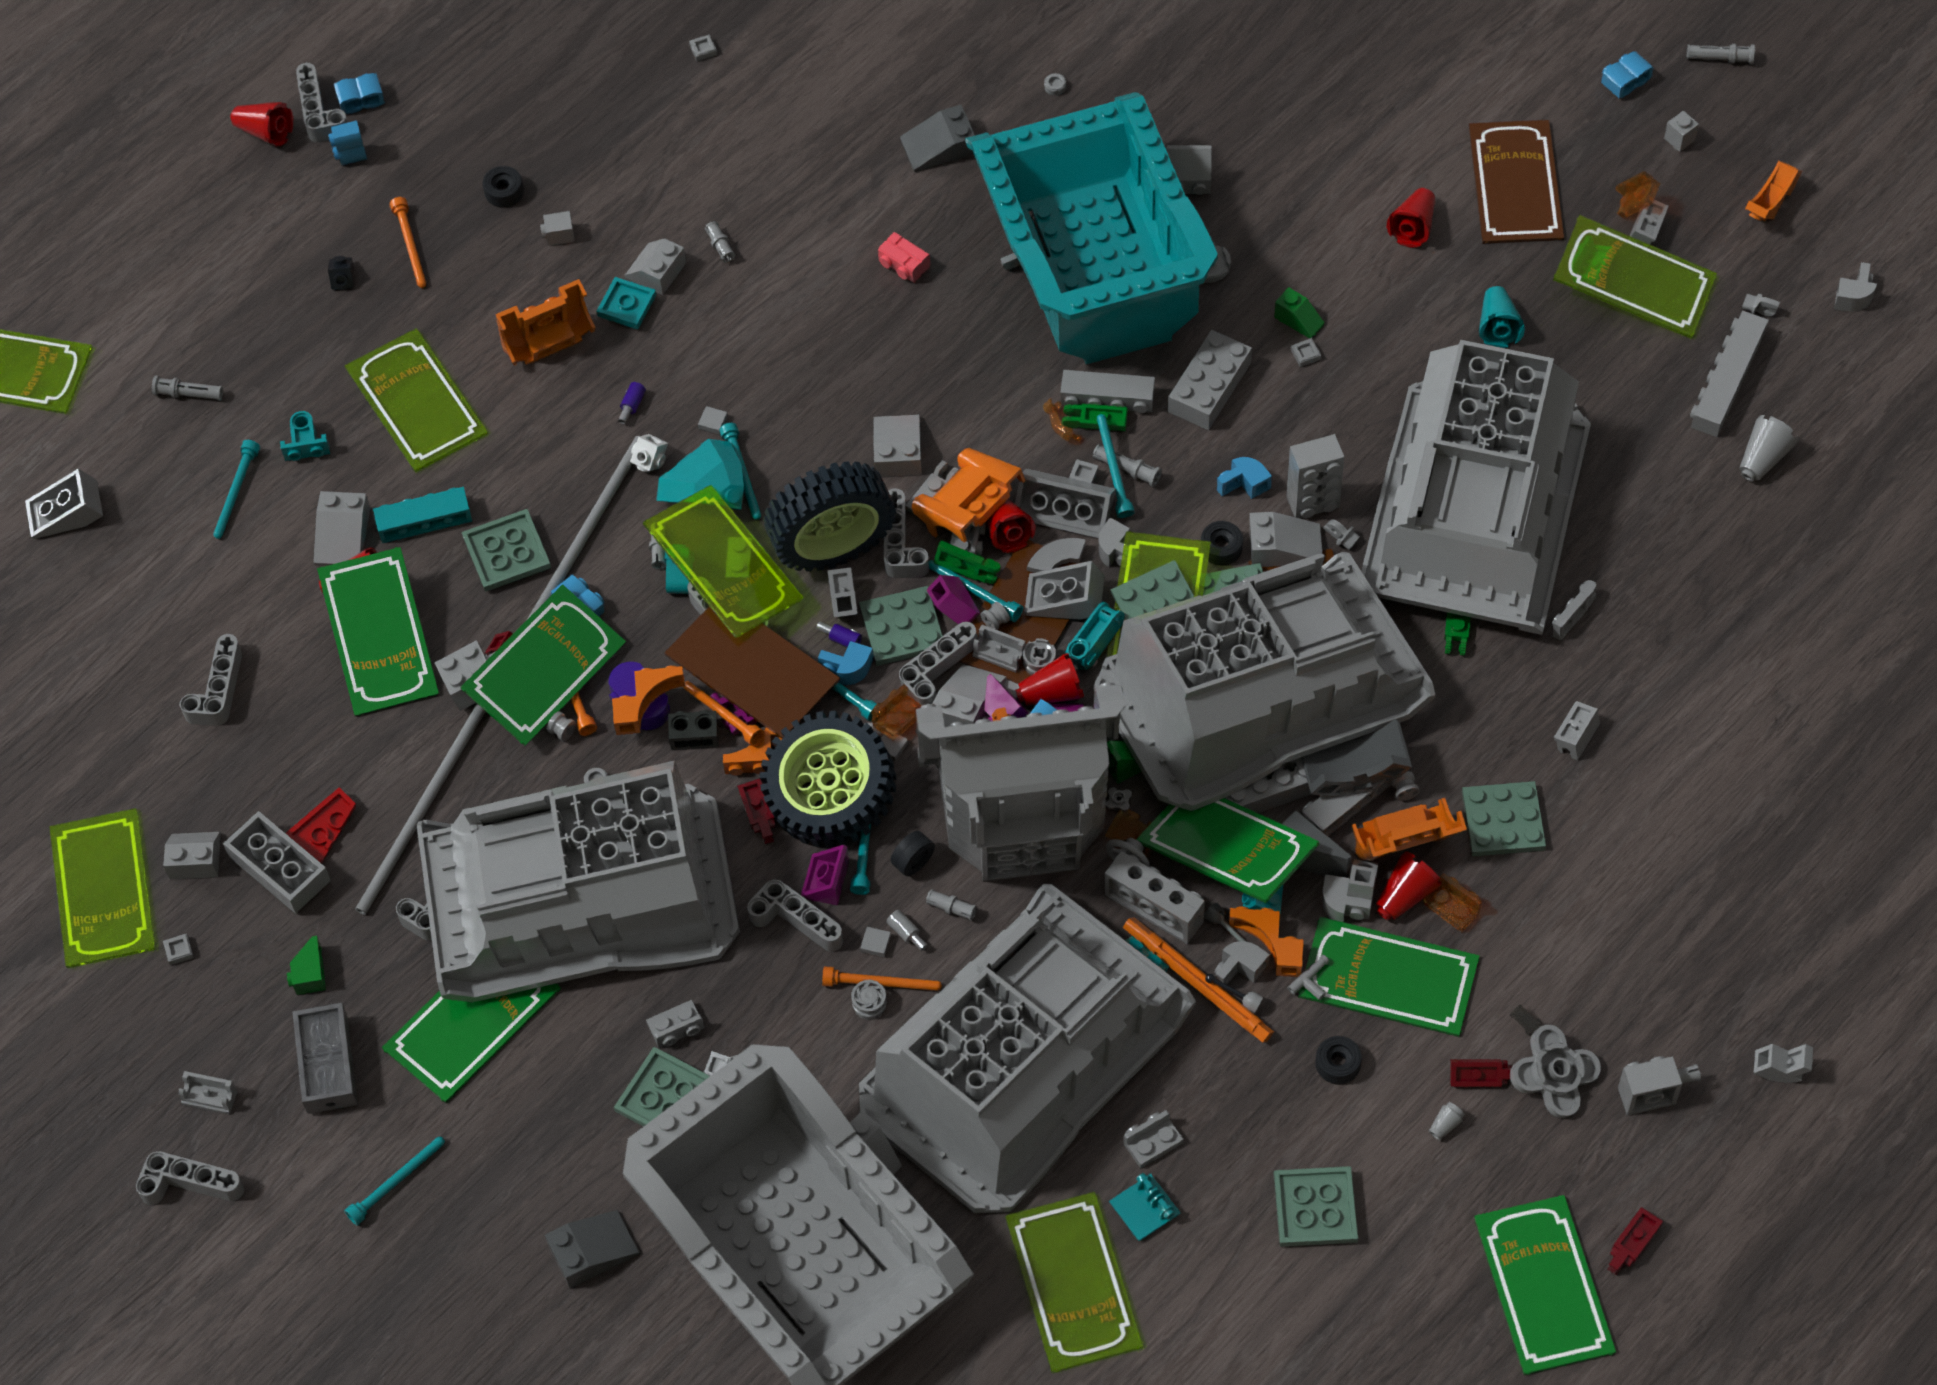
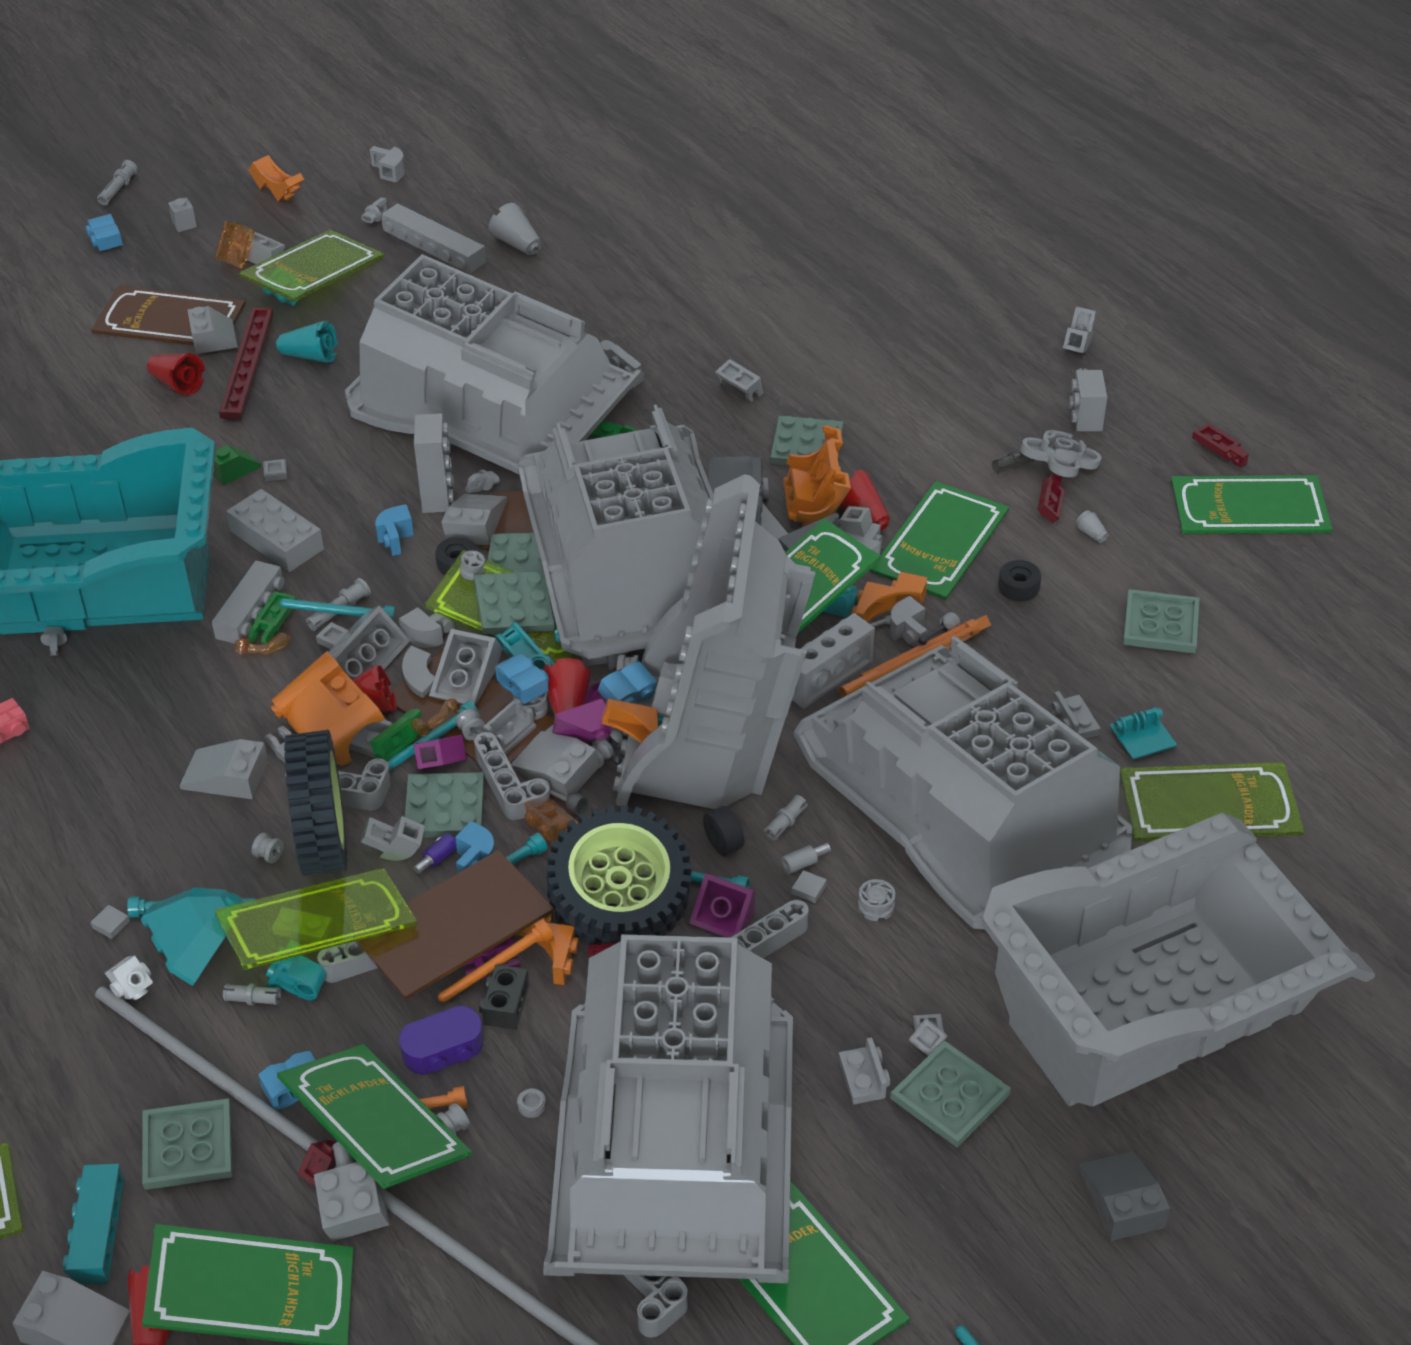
camera: 80 degrees left, 15 degrees down
(631, 400) = (44, 990): dark purple piece -> none
(649, 685) = (471, 1034): orange arch -> none
(832, 977) = (842, 926): orange piece -> none
(1007, 591) = (424, 726): none -> clear orange piece
(1047, 638) = (522, 678): none -> dark azure brick
(1185, 548) = (471, 563): none -> light grey wheel
(1305, 979) = (936, 587): light grey piece -> none
(1454, 903) = (888, 481): clear orange bracket -> none
(1458, 273) = (246, 363): none -> dark red plate
(1491, 224) = (211, 330): none -> light grey slope

